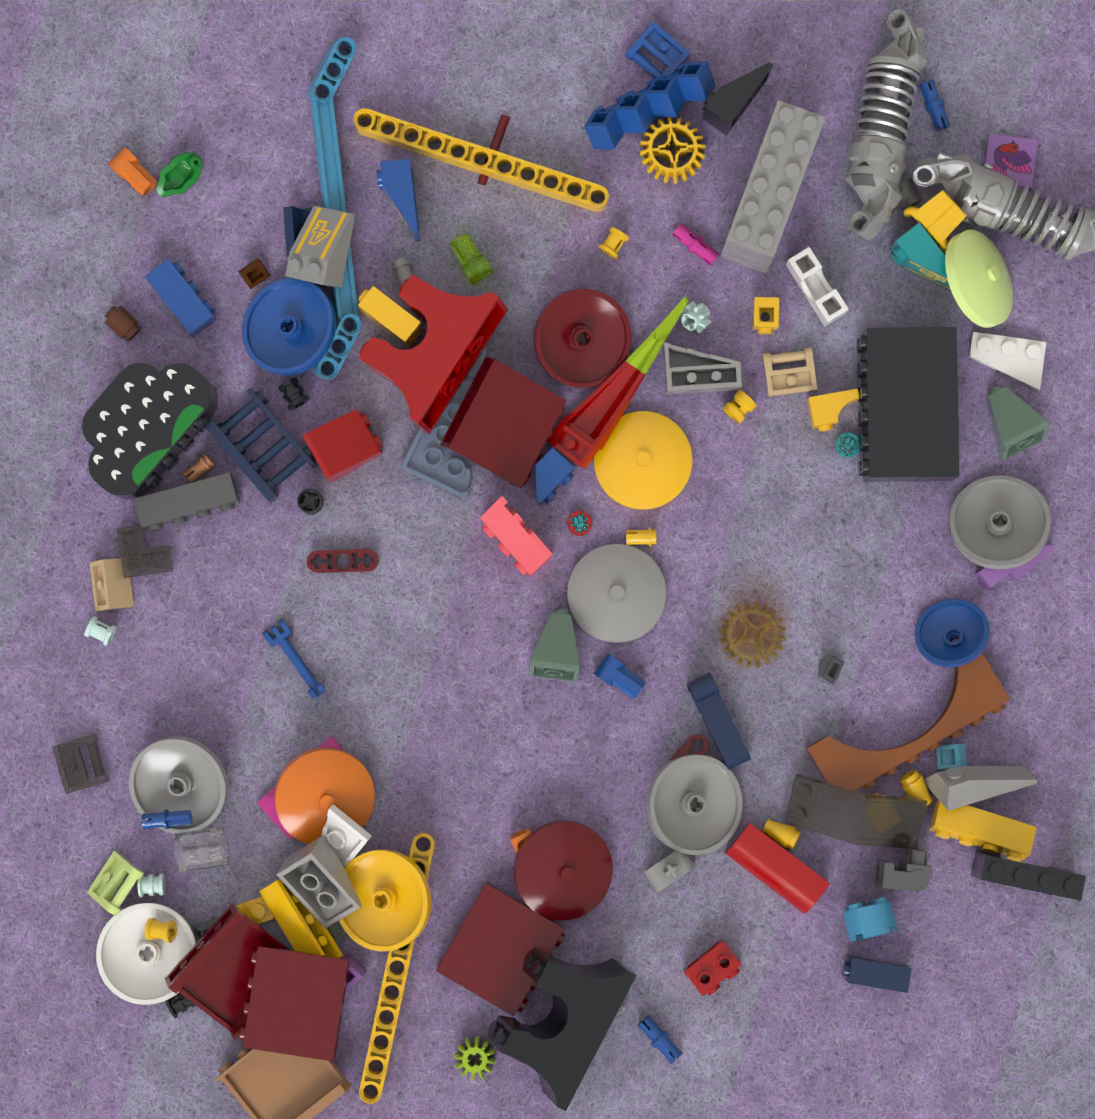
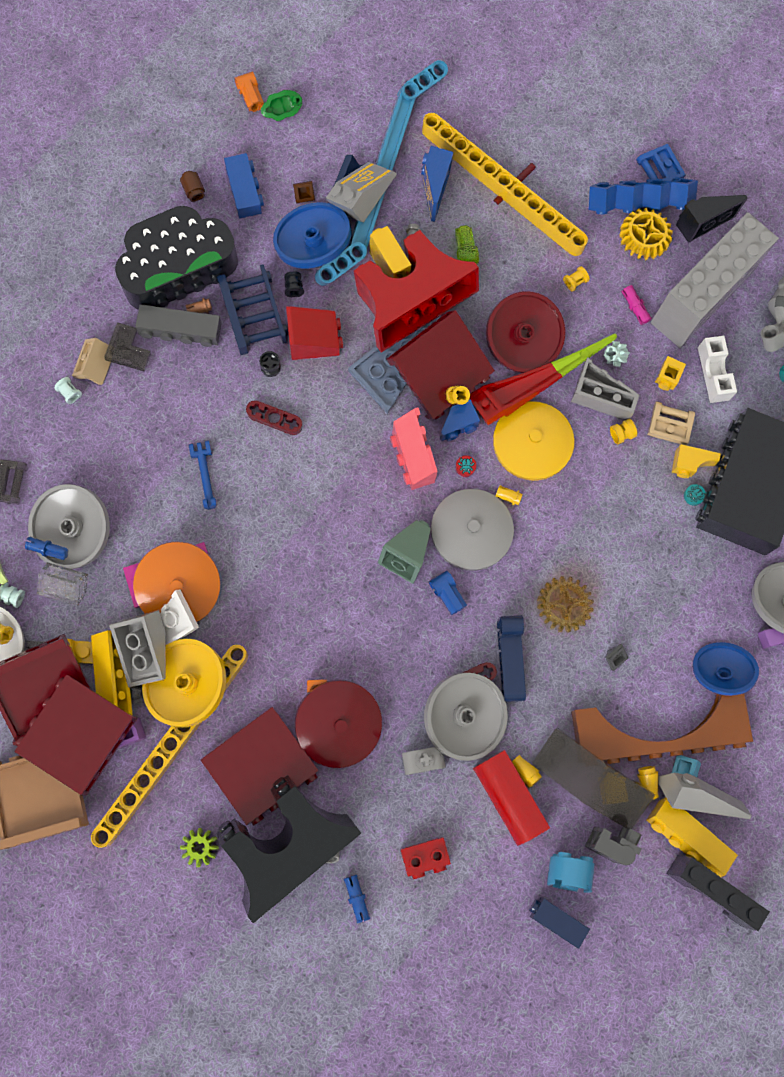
camera: 10 degrees right, 10 degrees down
(535, 445) = (463, 394): none -> yellow bush

